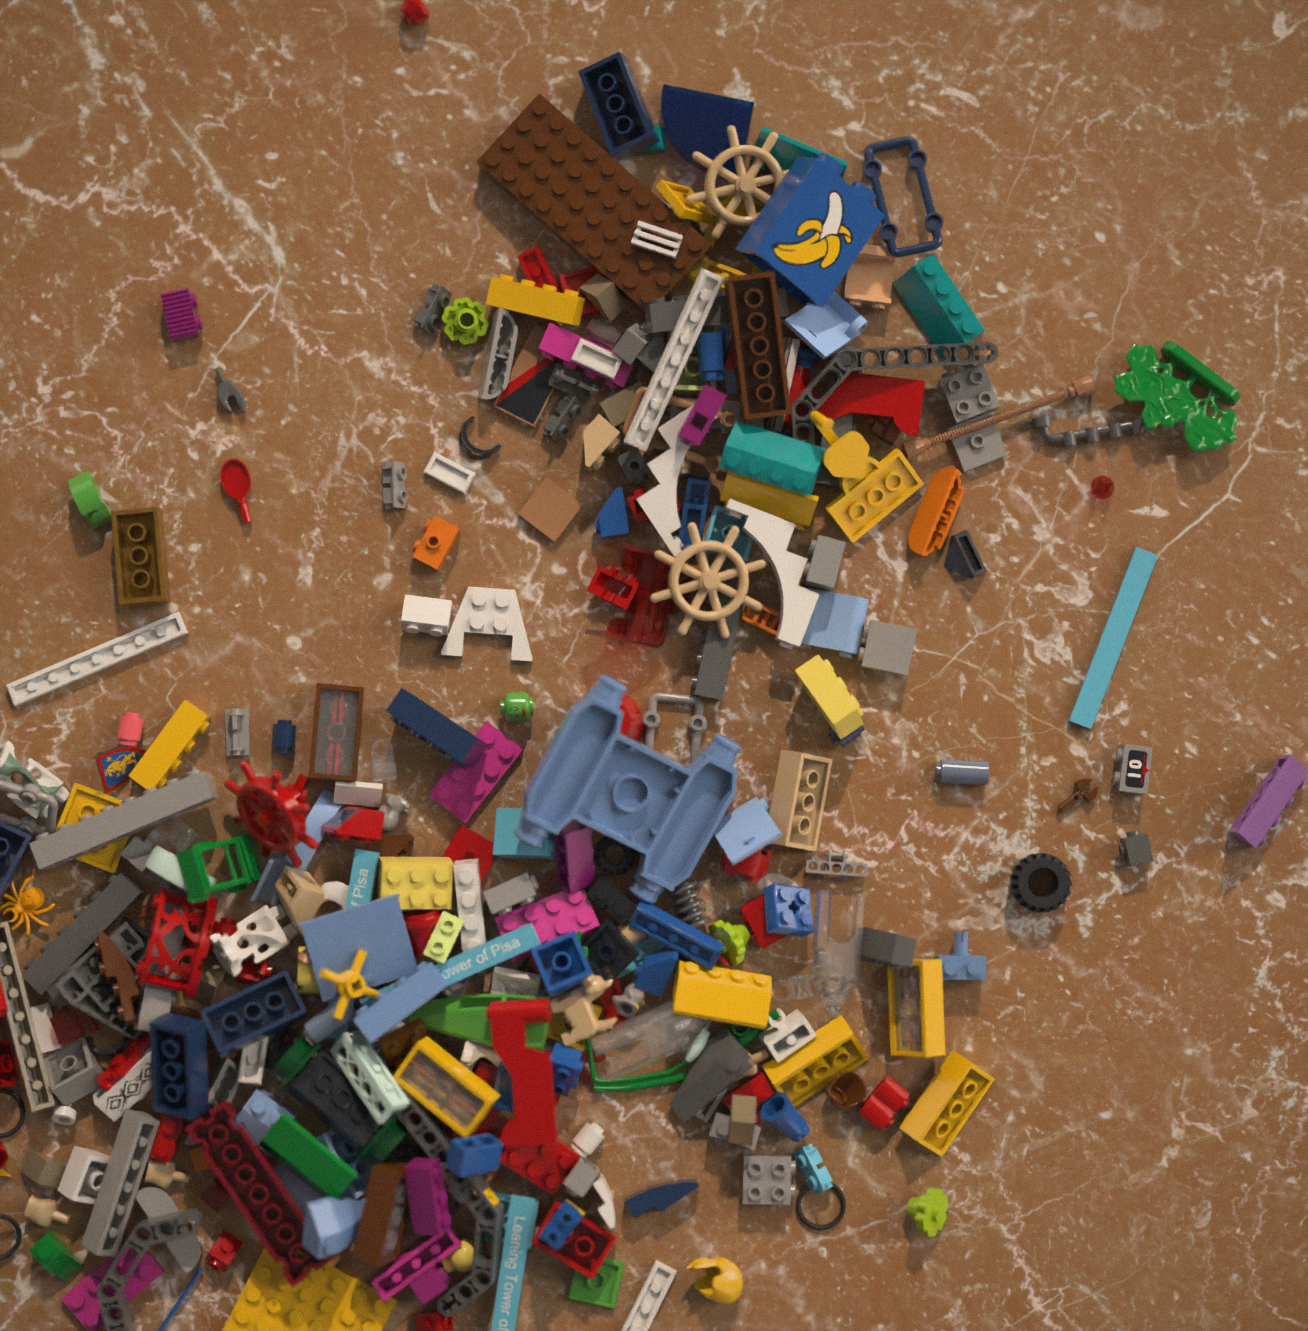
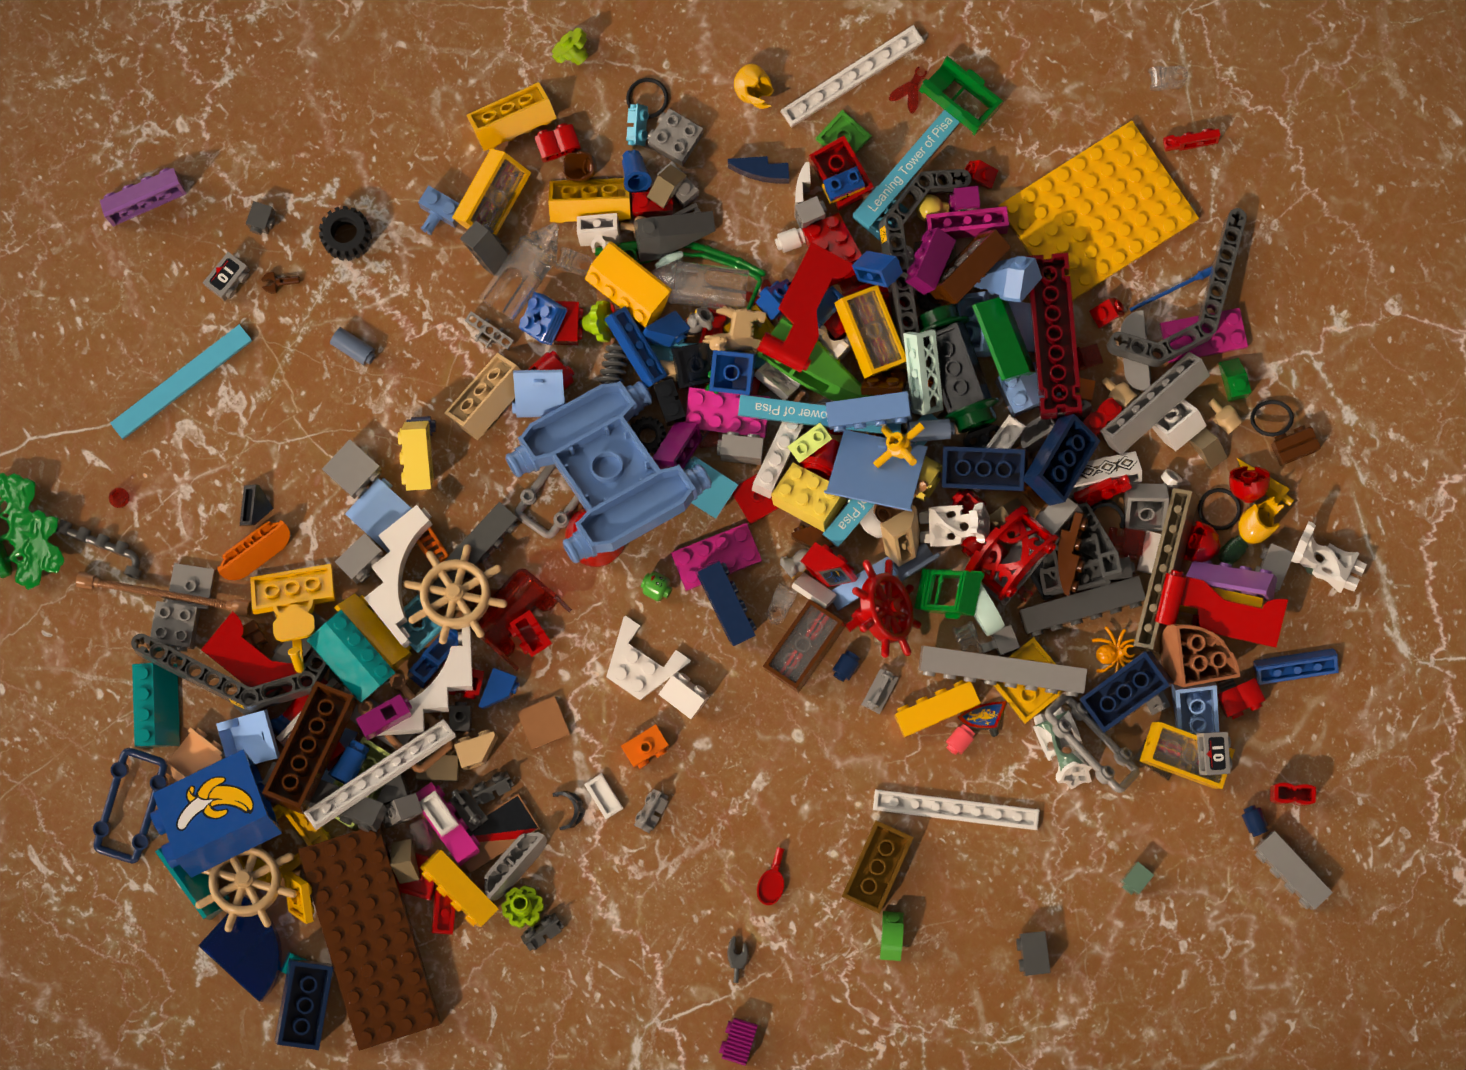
camera: 150 degrees left, 5 degrees down
(638, 233) = (347, 890): white tile -> none

